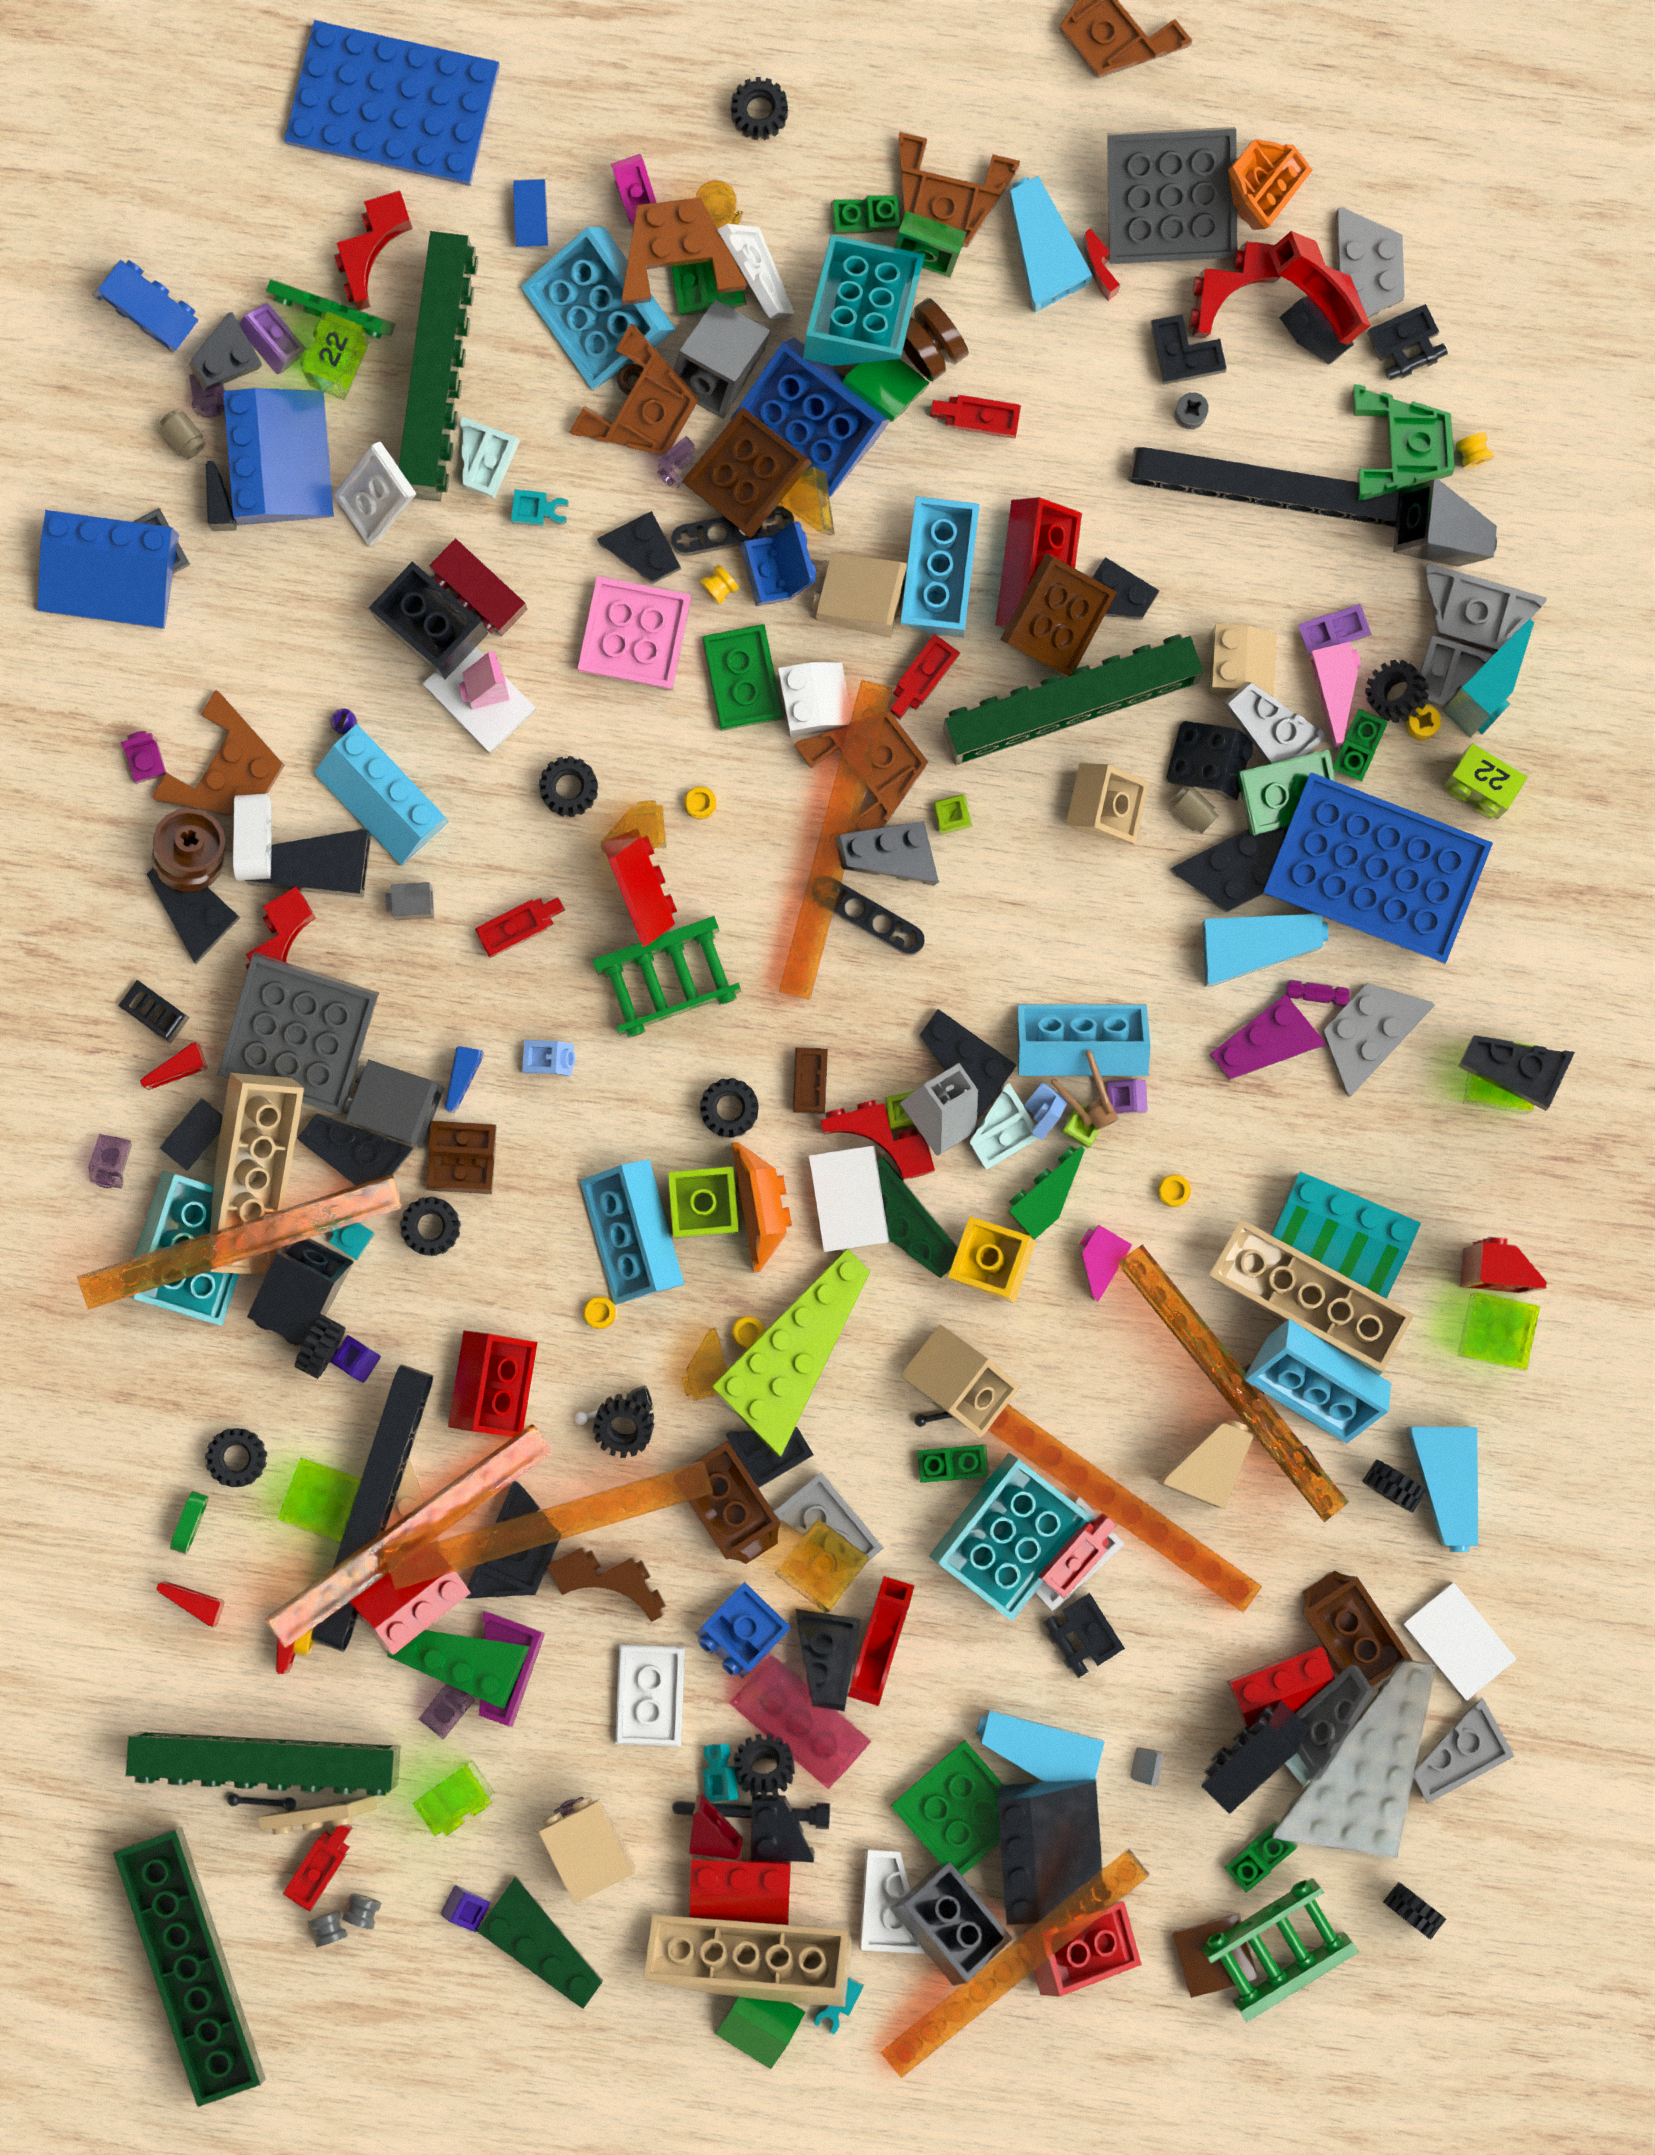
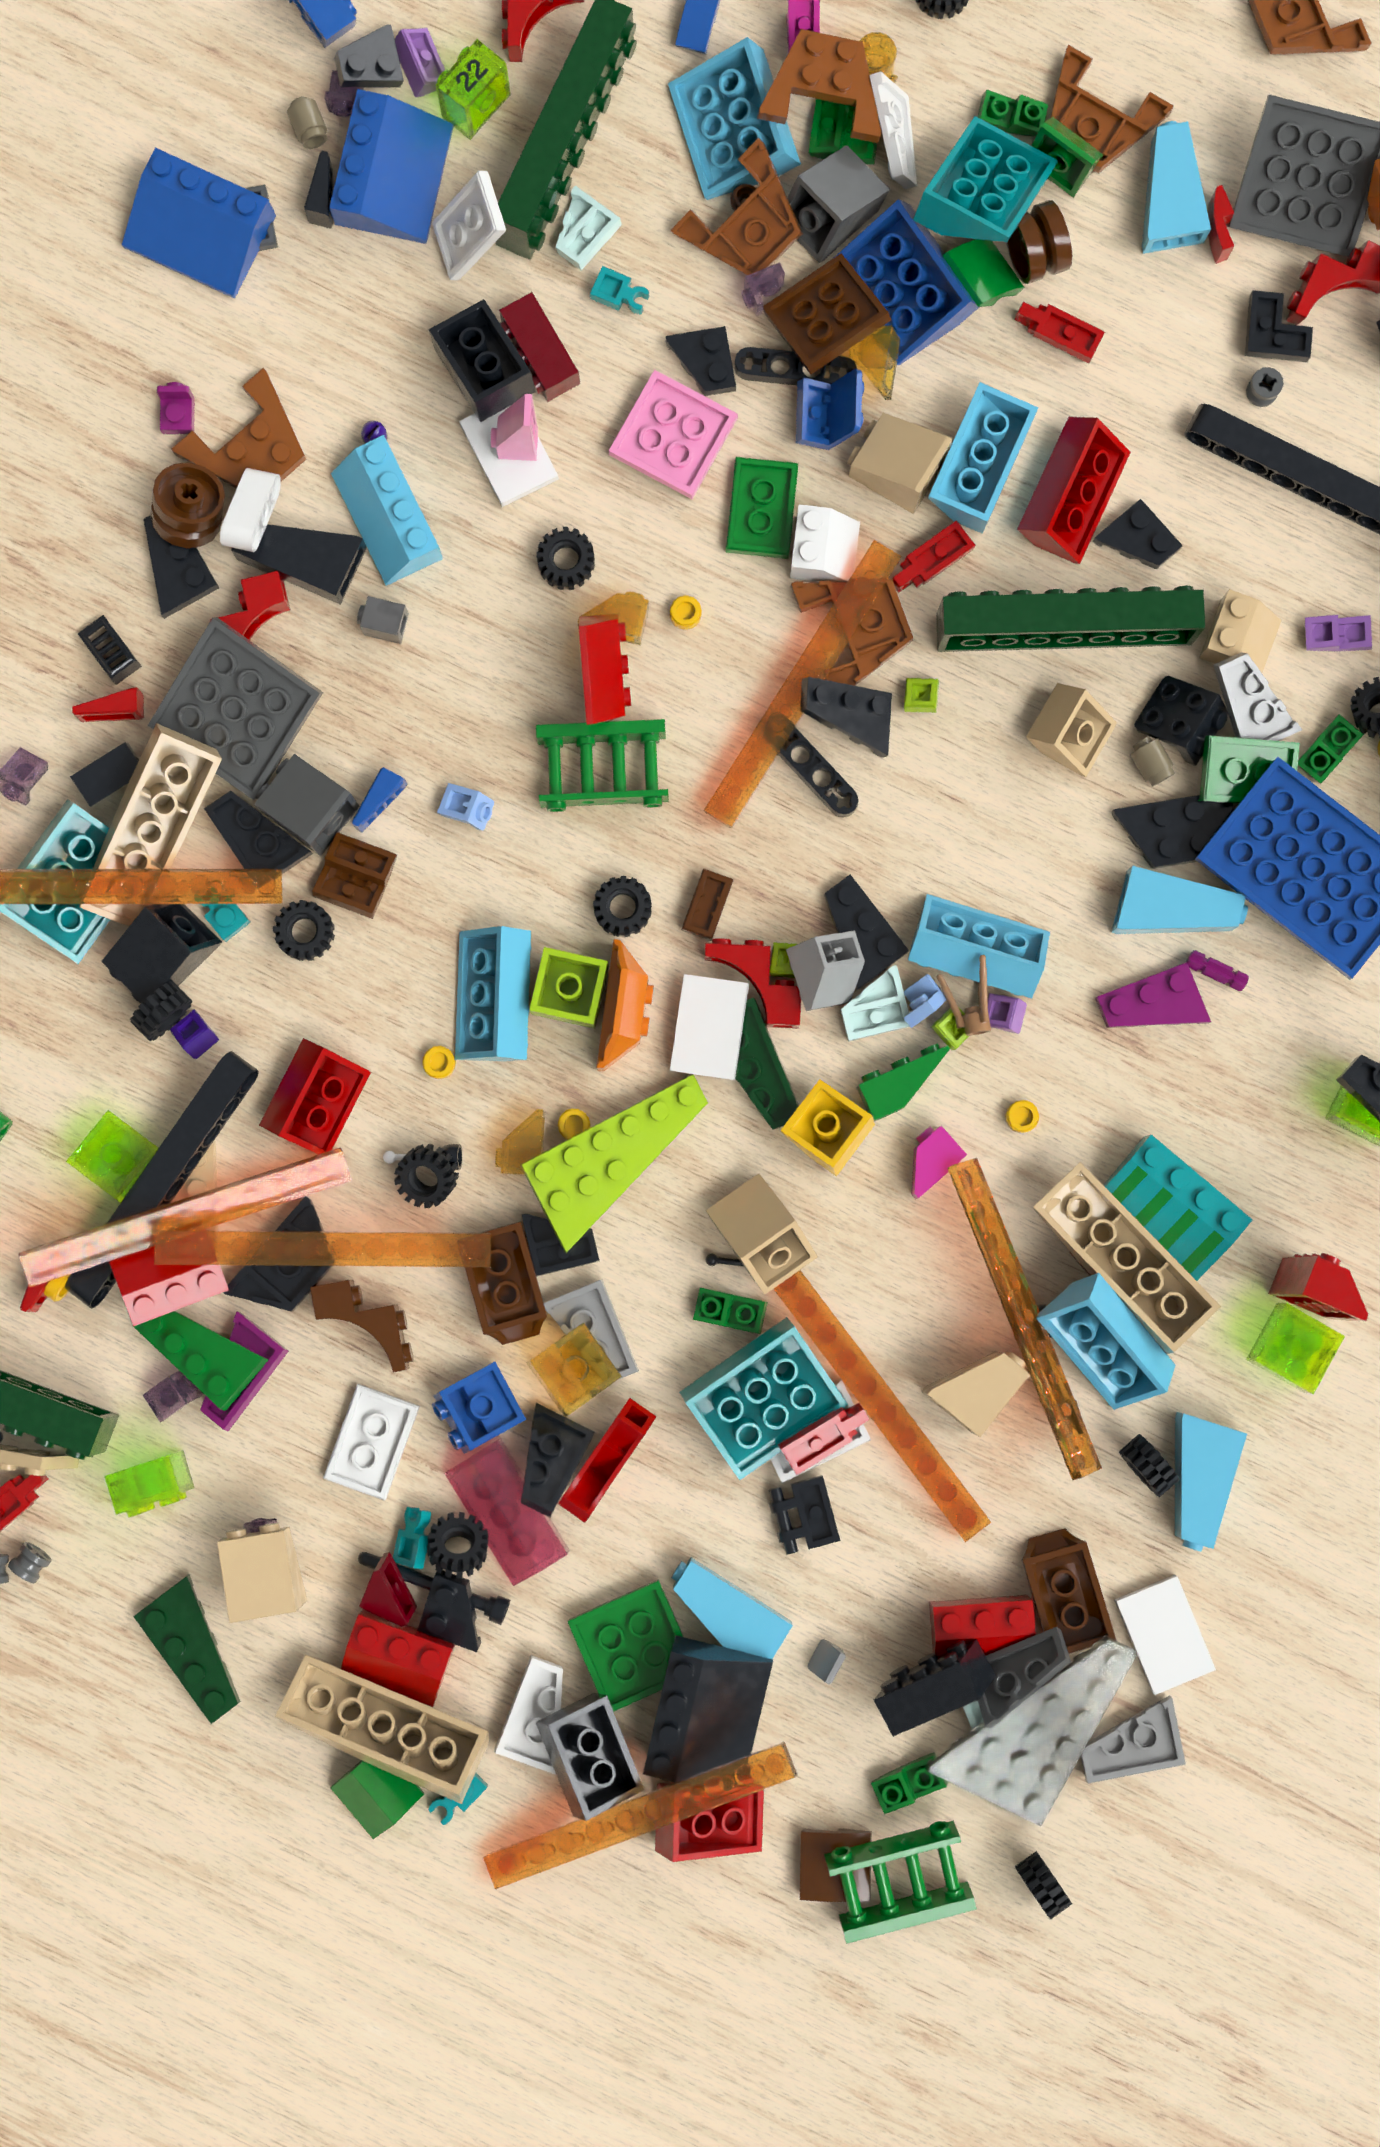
camera: 15 degrees right, 0 degrees up
(216, 1461) = (31, 1087): black tyre -> none
(317, 305) = (447, 22): green wing -> none
(465, 1908) = (130, 1591): dark purple slope -> none
(518, 925) = (477, 673): red hinge -> none
(719, 585) = (767, 413): yellow wheel -> none
(1058, 615) = (1081, 533): reddish brown plate -> none
(1335, 680) = (1325, 677): bright pink slope -> none
(1370, 1031) = (1257, 1022): light grey wing -> none

